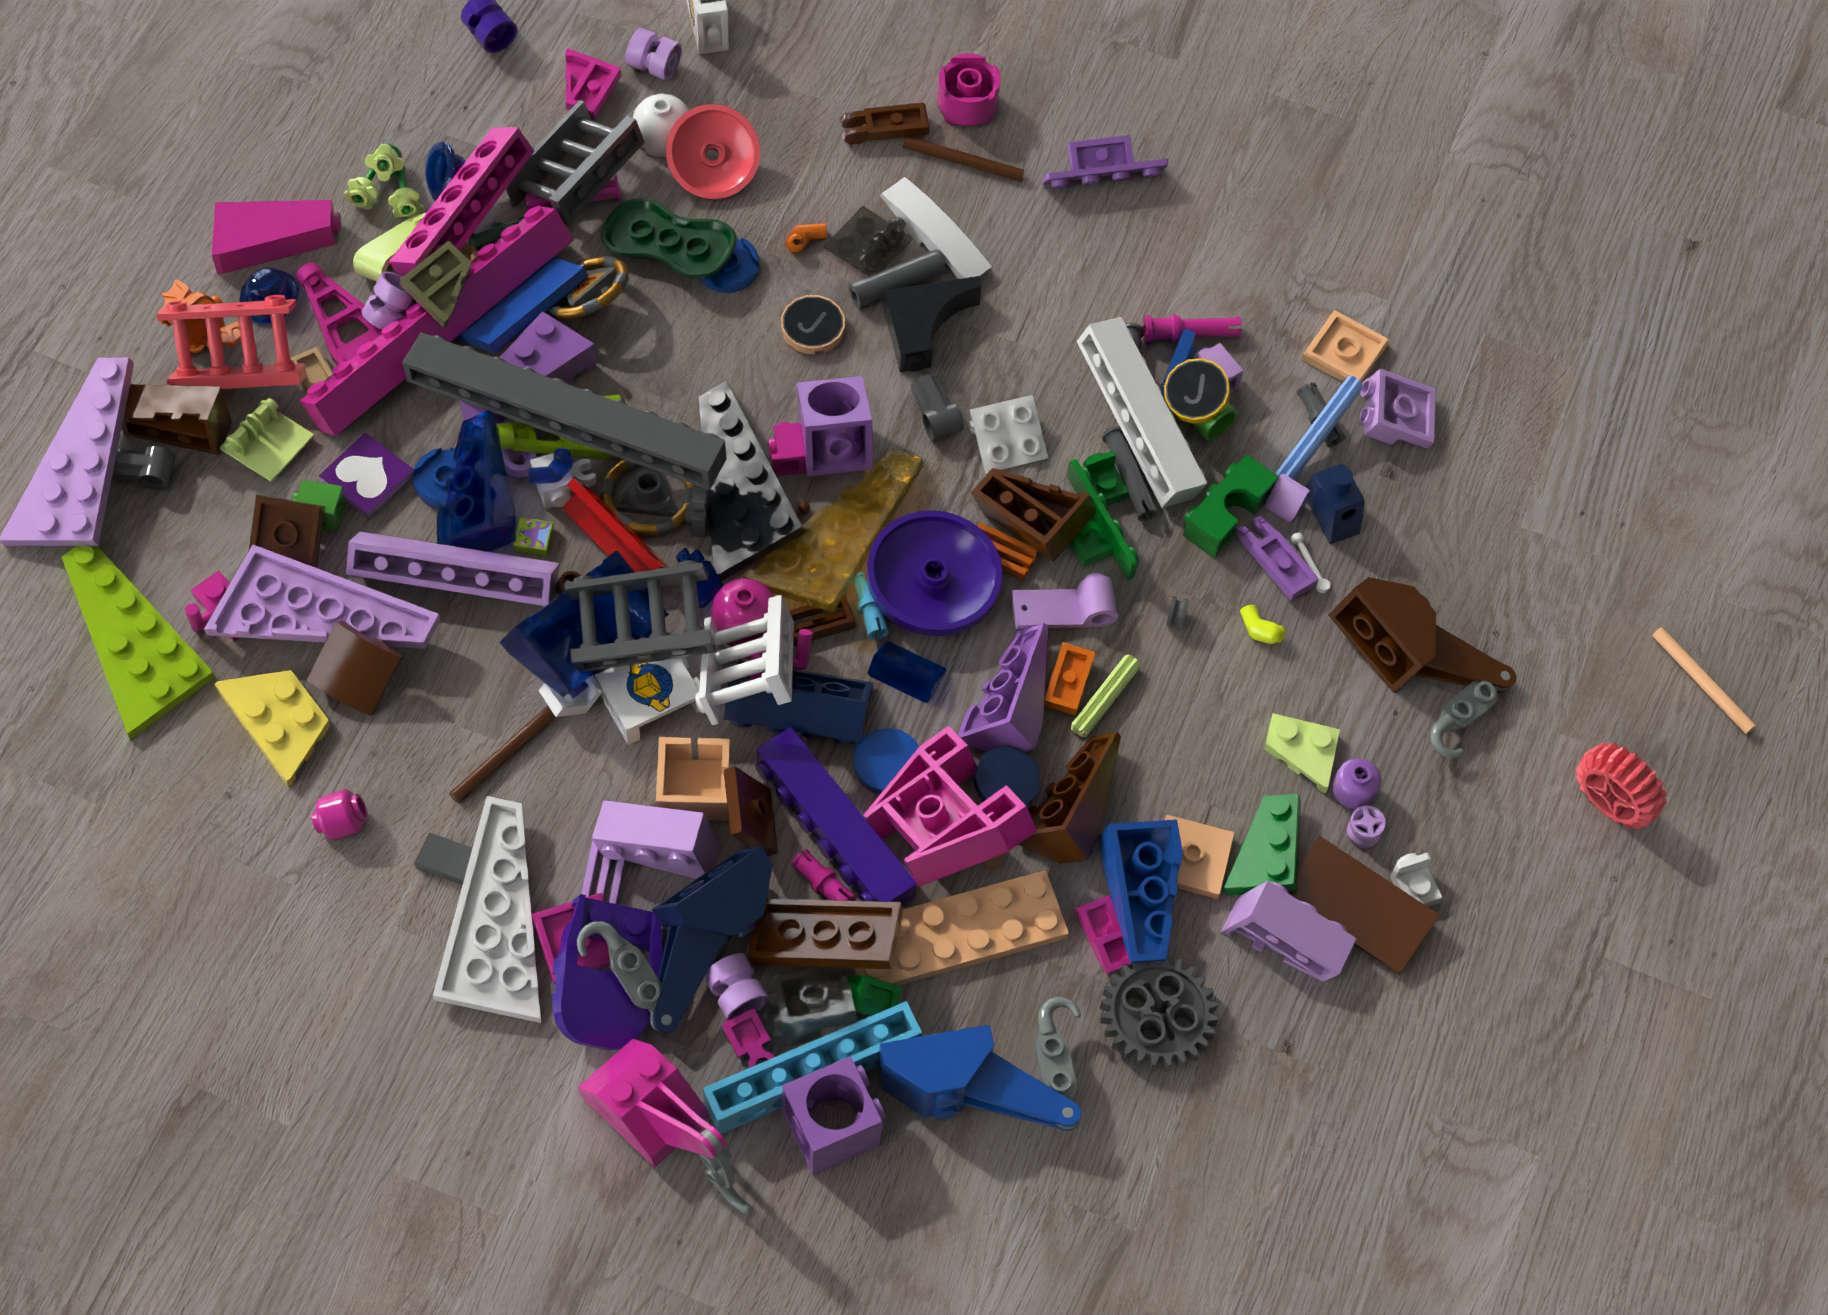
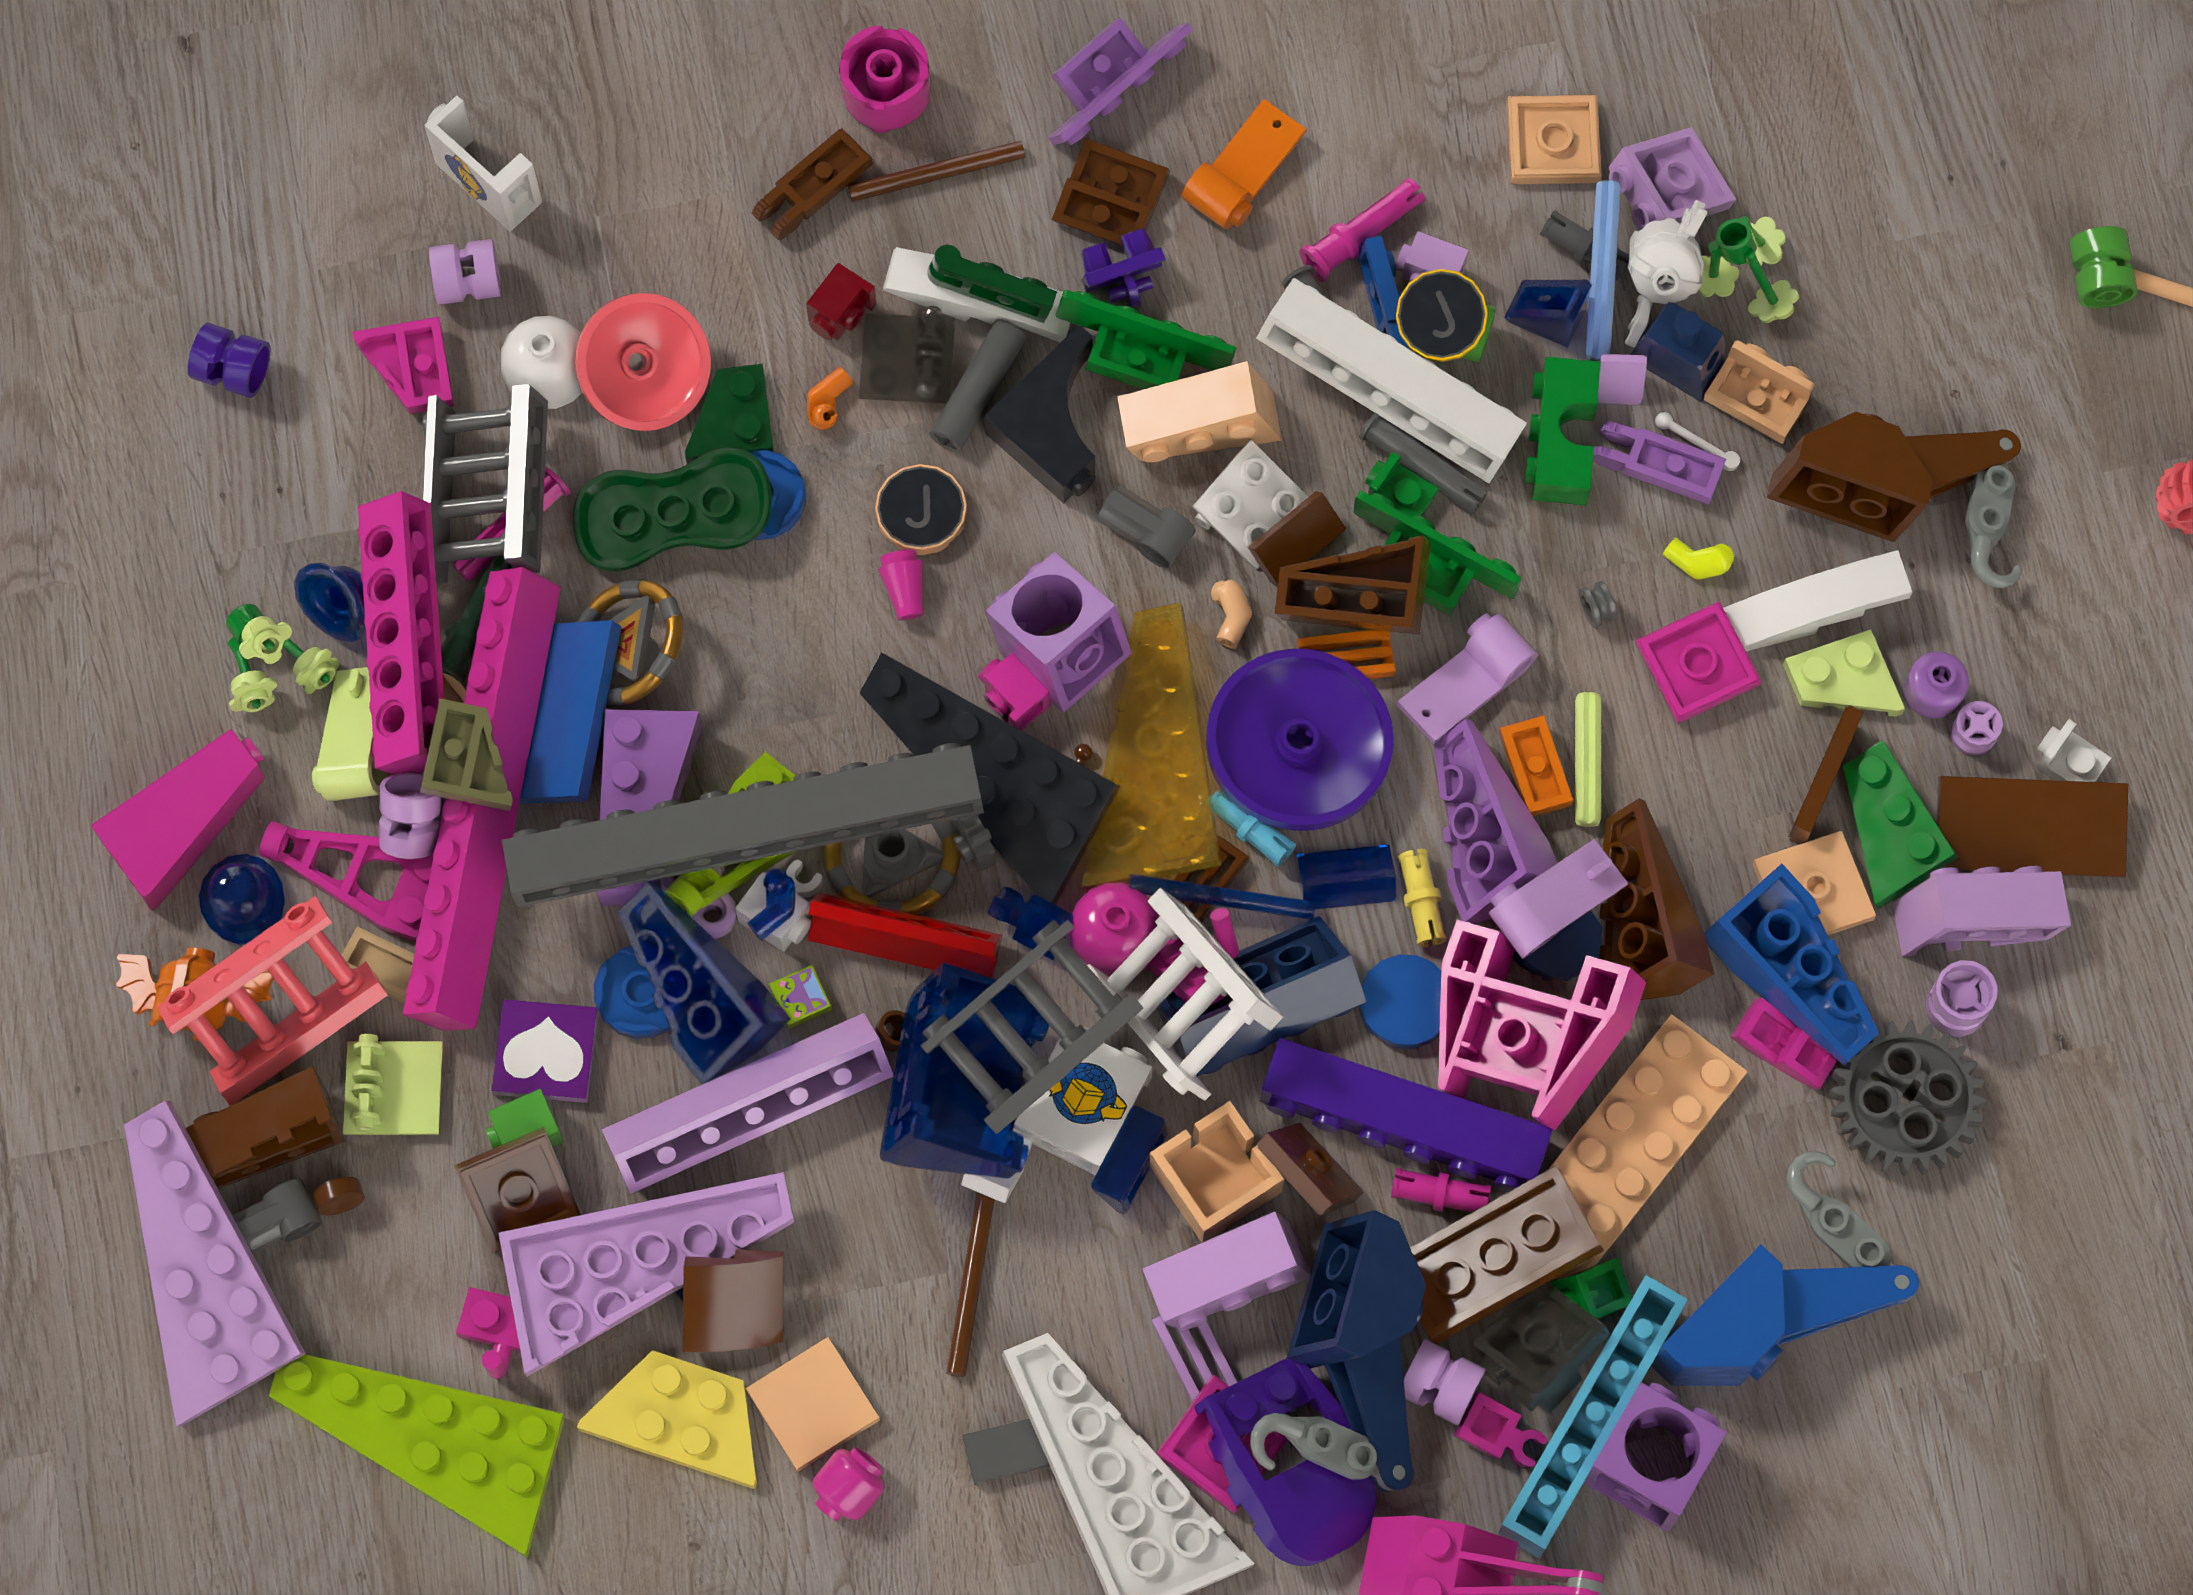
camera: 30 degrees left, 10 degrees up
(188, 476) = (338, 1195): none -> reddish brown tile
(358, 759) = (812, 1404): none -> light nougat tile
(641, 743) = (1129, 1158): none -> clear blue slope
(748, 212) = (733, 414): none -> dark green wing
(771, 353) = (904, 582): none -> dark pink cone
(824, 634) = (1225, 897): none -> clear blue bar
(850, 189) = (839, 303): none -> dark red brick
(941, 223) = (990, 284): none -> dark green plate
(943, 707) = (1422, 898): none -> light yellow pin
(954, 487) = (1237, 609): none -> light nougat arm
(1003, 748) = (1555, 898): none -> lavender door
(1007, 312) = (1137, 346): none -> green bracket
(1015, 366) = (1200, 414): none -> light nougat wedge
(1029, 270) = (1140, 259): none -> dark purple hips
(1034, 464) = (1297, 536): none -> reddish brown tile
(1055, 227) = (1110, 192): none -> reddish brown slope
(1143, 258) = (1243, 167): none -> orange door
(1215, 682) = (1698, 662): none -> dark pink plate
(1236, 974) = (1961, 998): none -> lavender wheel
(1248, 793) = (1825, 775): none -> reddish brown tile
(1273, 436) = (1550, 308): none -> clear blue slope
(1313, 689) = (1819, 601): none -> white slope
(1367, 439) = (1665, 250): none -> white helmet
(1369, 551) = (1760, 391): none -> light nougat bracket
(1411, 457) = (1752, 244): none -> plant
(1642, 613) = (2102, 265): none -> bright green wheel

